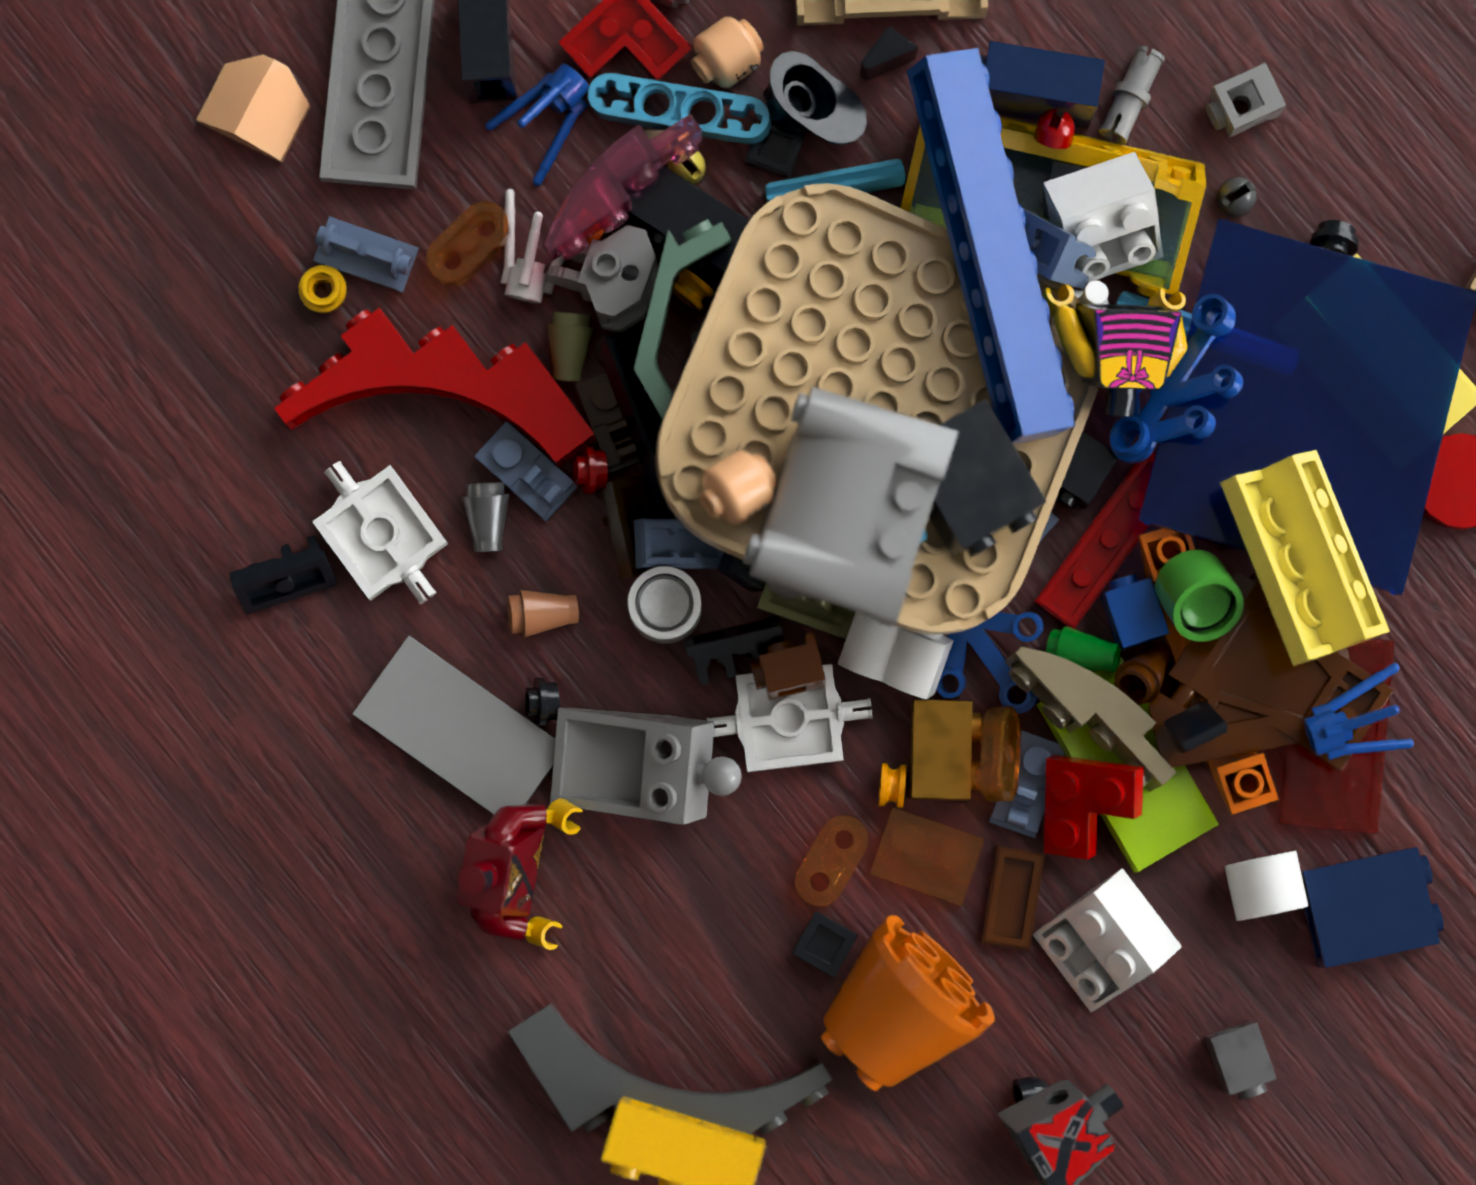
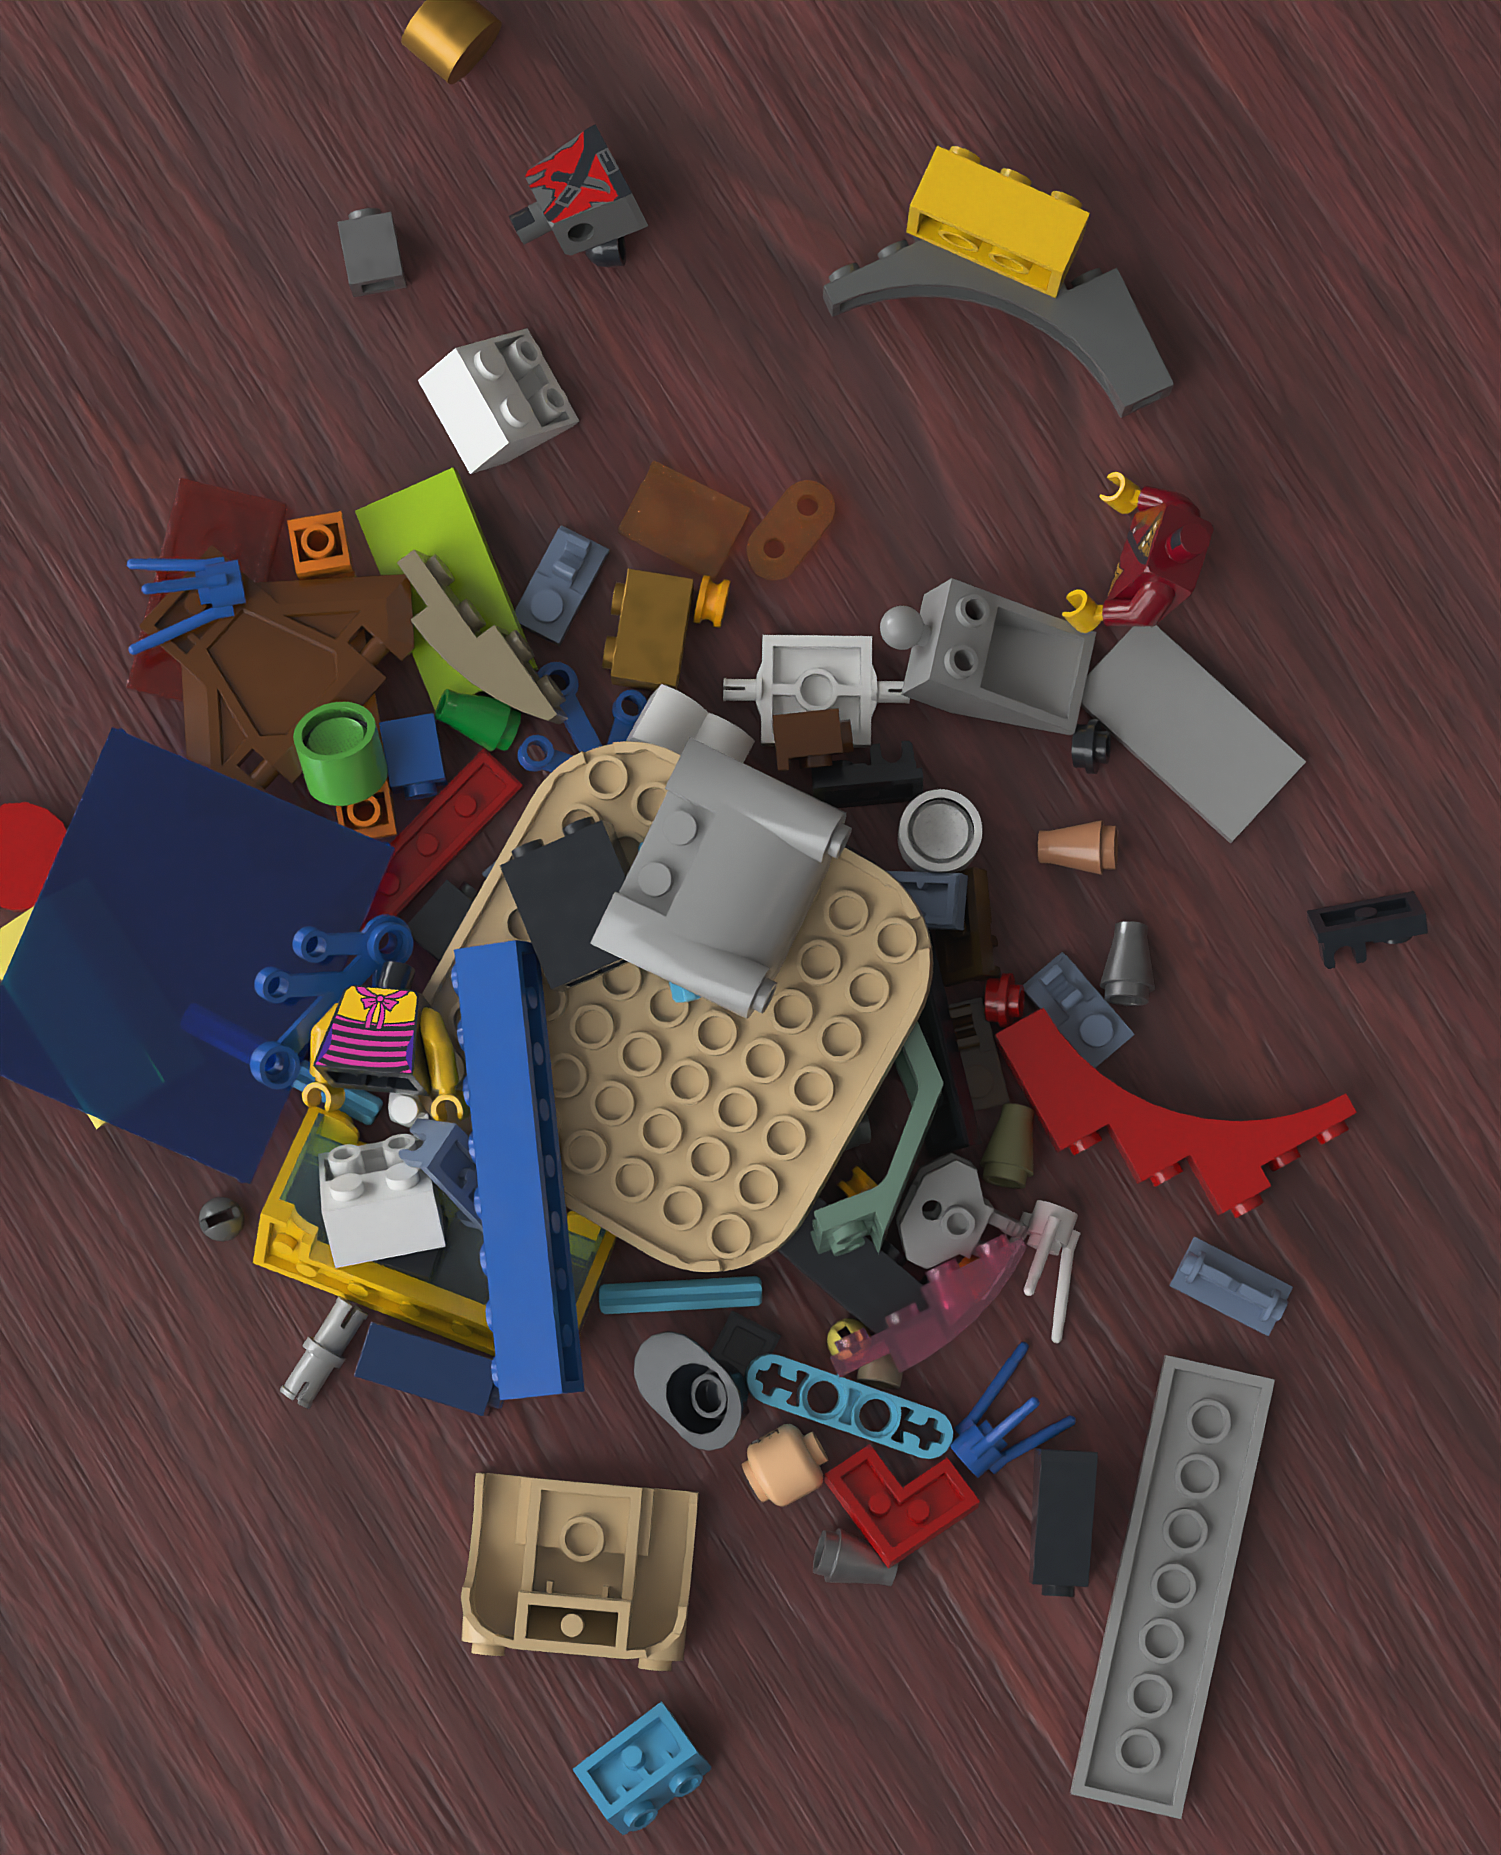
camera: 175 degrees left, 0 degrees up
(256, 105) = (1338, 1479): light nougat slope -> none
(318, 275) = (1301, 1244): yellow plate -> none
(380, 532) = (1251, 961): white plate -> none
(464, 240) = (1111, 1282): clear orange plate -> none
(737, 487) = (845, 920): light nougat head -> none
(824, 944) = (810, 438): black plate -> none
(887, 54) = (600, 1438): black slope -> none
(902, 1007) = (733, 352): orange cone -> none
(1000, 754) = (587, 615): clear orange plate -> none
(1012, 898) = (595, 462): reddish brown tile -> none
(1055, 130) = (421, 1310): red hinge -> none
(1078, 792) = (505, 559): red plate -> none
(1143, 674) = (416, 680): reddish brown cone -> none
(1195, 727) = (367, 609): black slope -> none
(1253, 87) = (175, 1328): light grey brick -> none
(1266, 885) = (314, 433): white piece -> none
(1304, 557) = (217, 777): light yellow slope -> none
(1336, 236) = (118, 1149): black plate -> none
(1370, 907) = (203, 397): dark blue brick -> none

